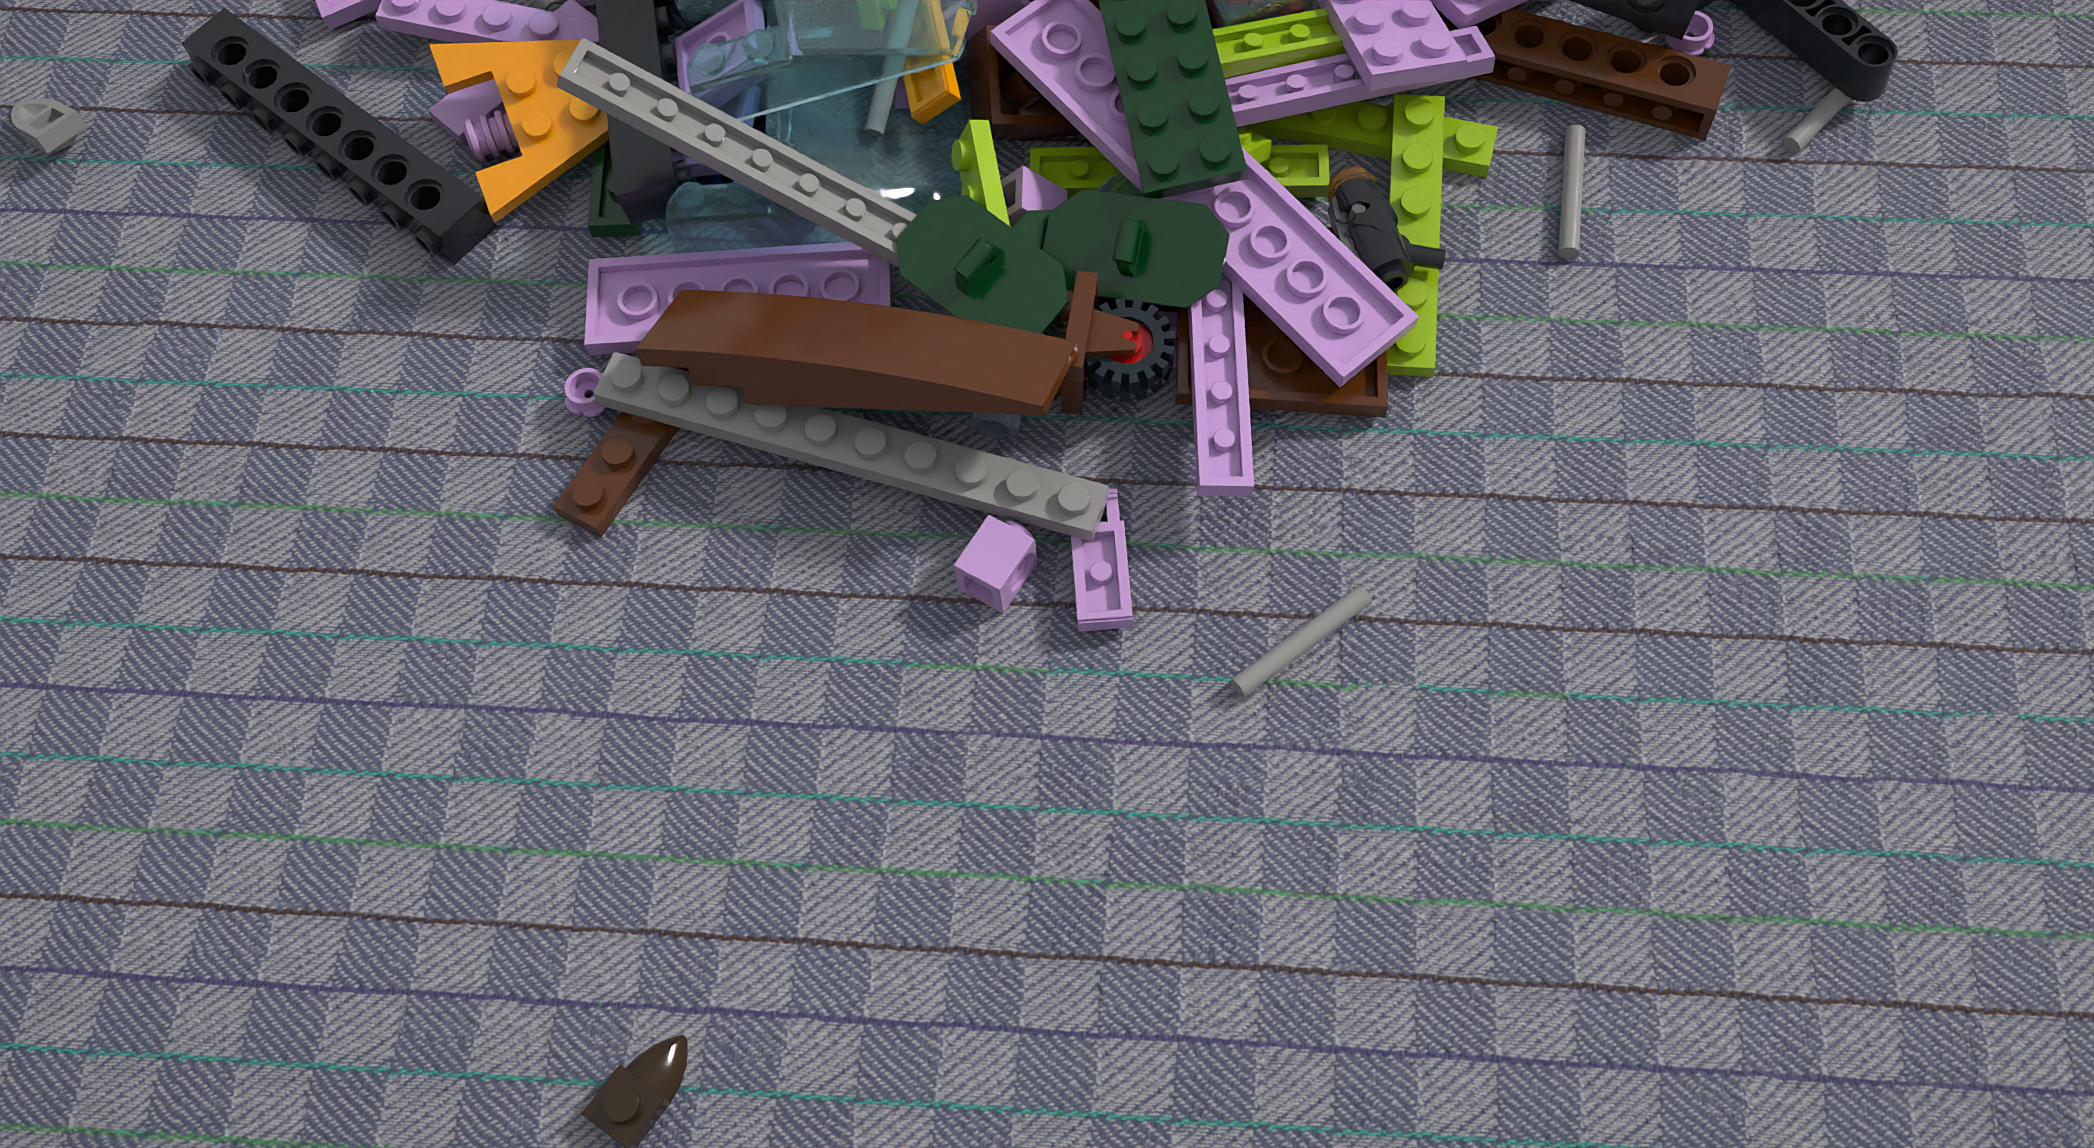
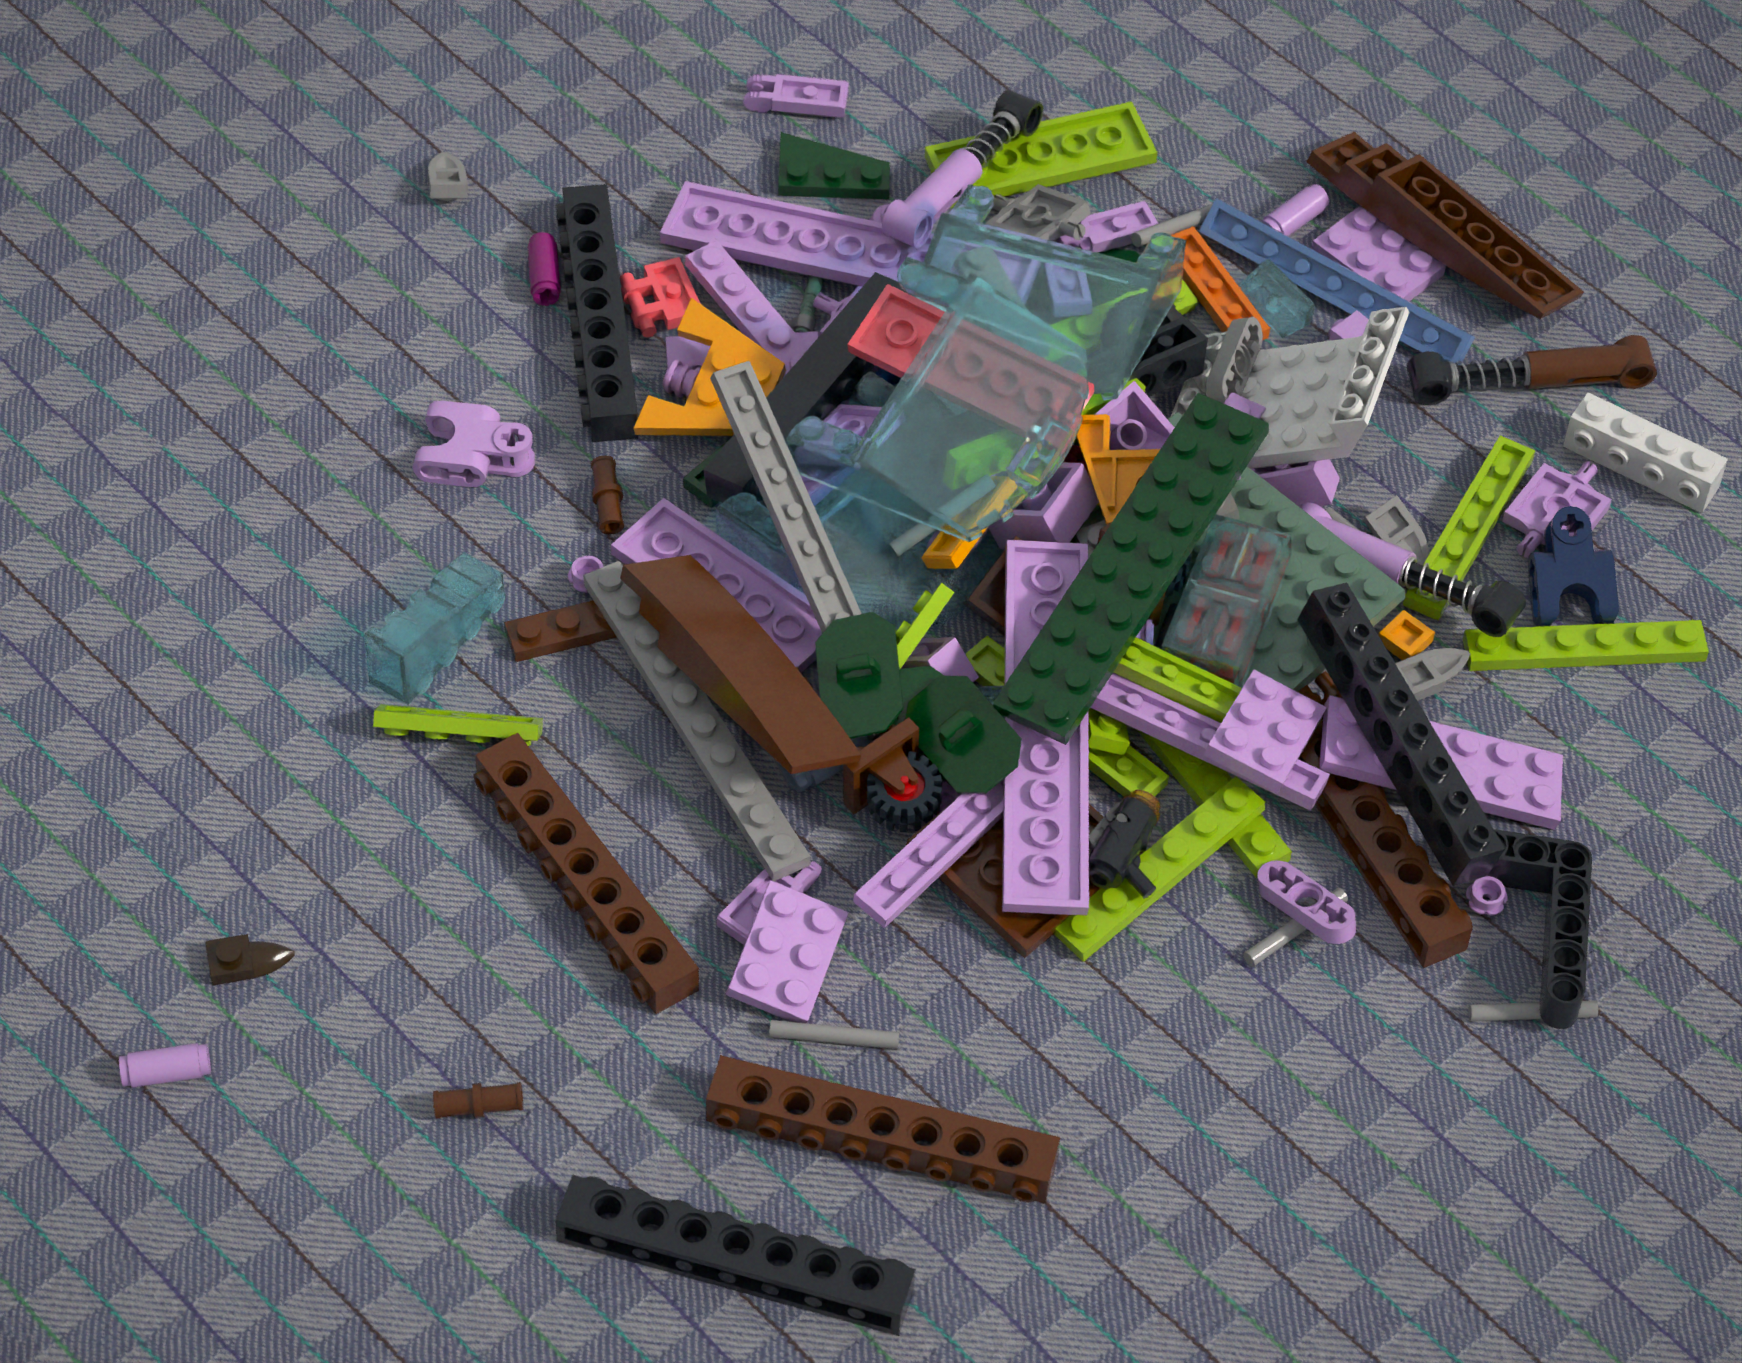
camera: 35 degrees right, 10 degrees down
(237, 136) = (544, 269): none -> magenta piece
(346, 357) = (475, 446): none -> lavender piece
(391, 64) = (670, 289): none -> coral plate
(489, 571) = (432, 627): none -> clear light blue wedge
(527, 300) = (607, 494): none -> reddish brown pin
(596, 659) = (441, 723): none -> lime plate
(719, 636) = (659, 984): none -> reddish brown brick
(996, 562) = (709, 849): lavender brick -> none
(1046, 1024) = (478, 1100): none -> reddish brown pin
(1181, 601) = (787, 953): none -> lavender plate
(1584, 171) = (1314, 917): none -> lavender beam
(1615, 595) = (867, 1112): none -> reddish brown brick
(1640, 842) = (748, 1272): none -> black brick

